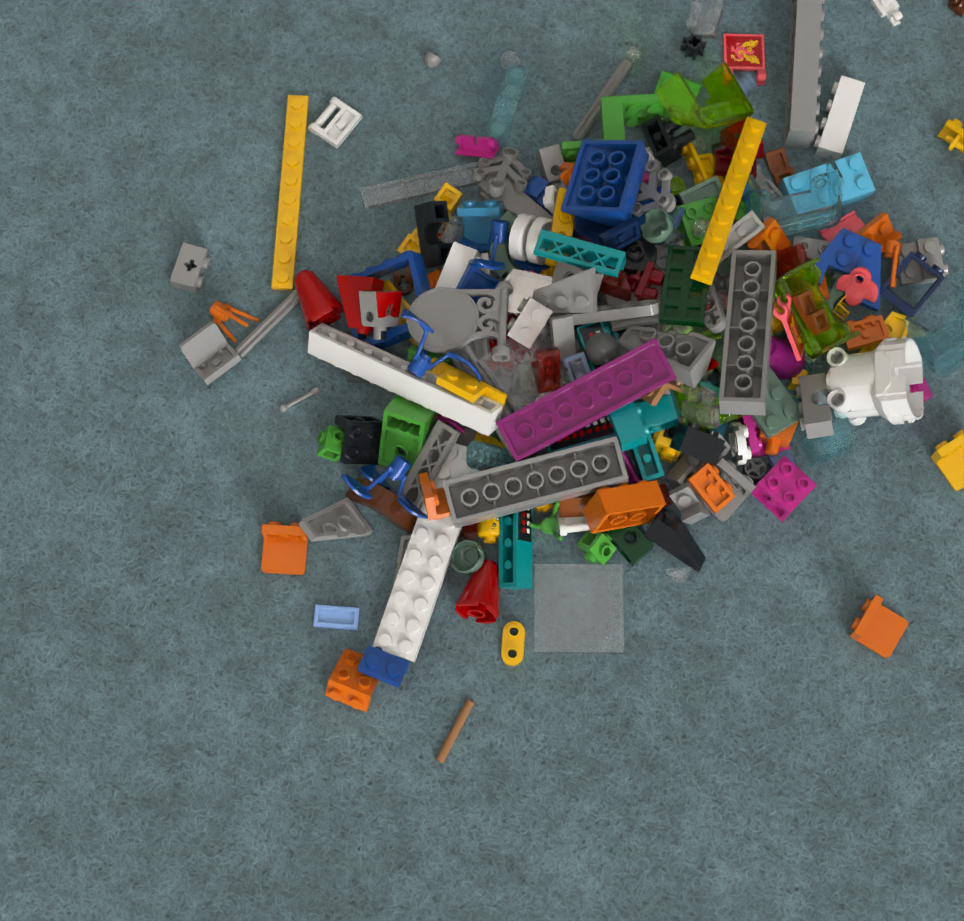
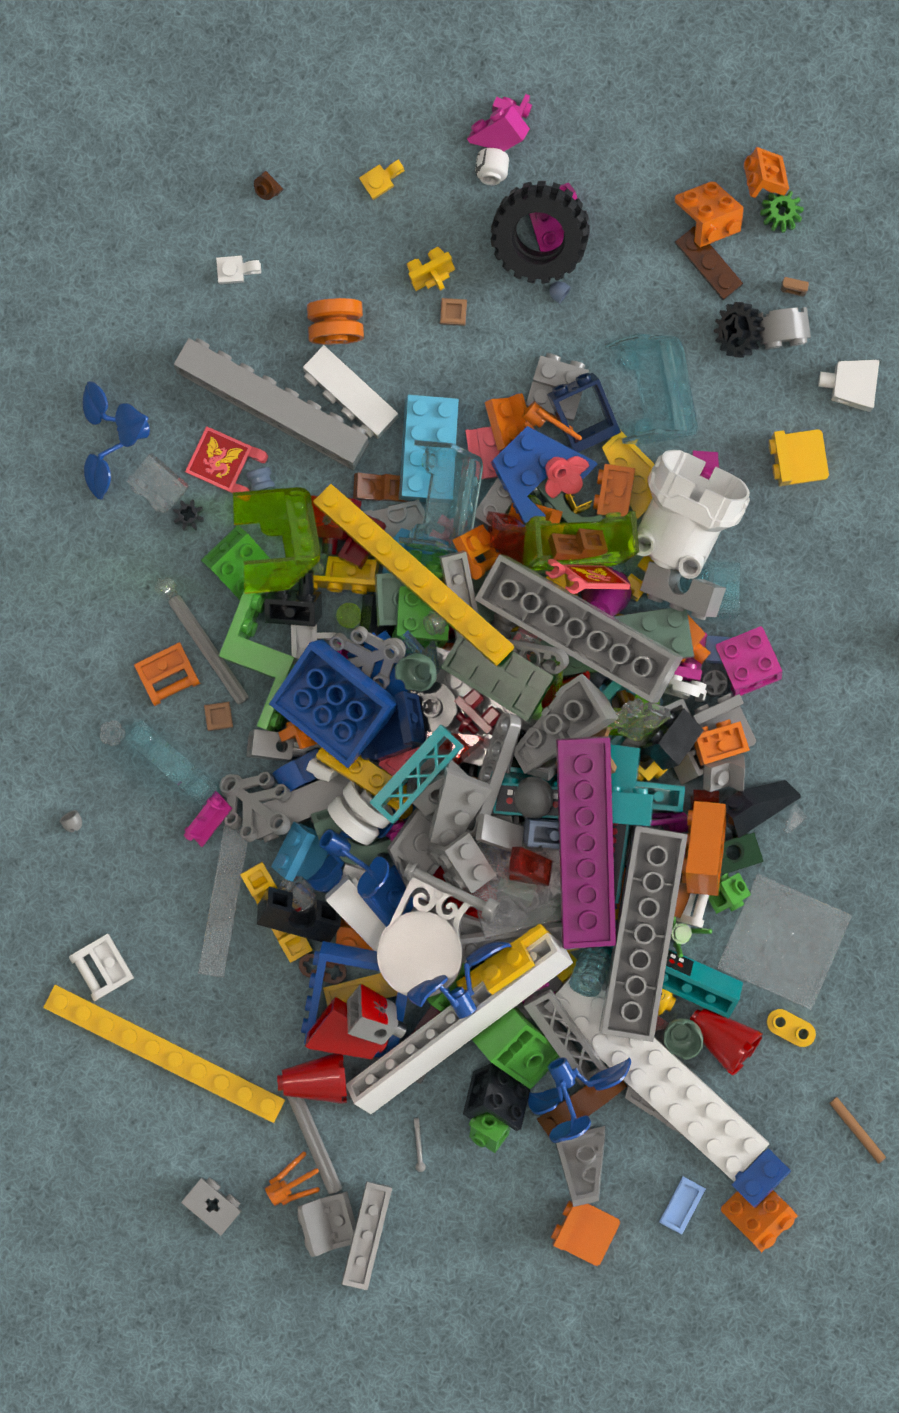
camera: 70 degrees left, 10 degrees up
(213, 385) = (366, 1235): none -> light grey fence
(434, 499) = (613, 1049): orange bracket -> none
(556, 128) = (218, 716): none -> medium nougat tile
(574, 74) = (163, 666): none -> orange plate
(887, 82) = (335, 321): none -> orange wheel
(936, 167) = (453, 311): none -> medium nougat tile

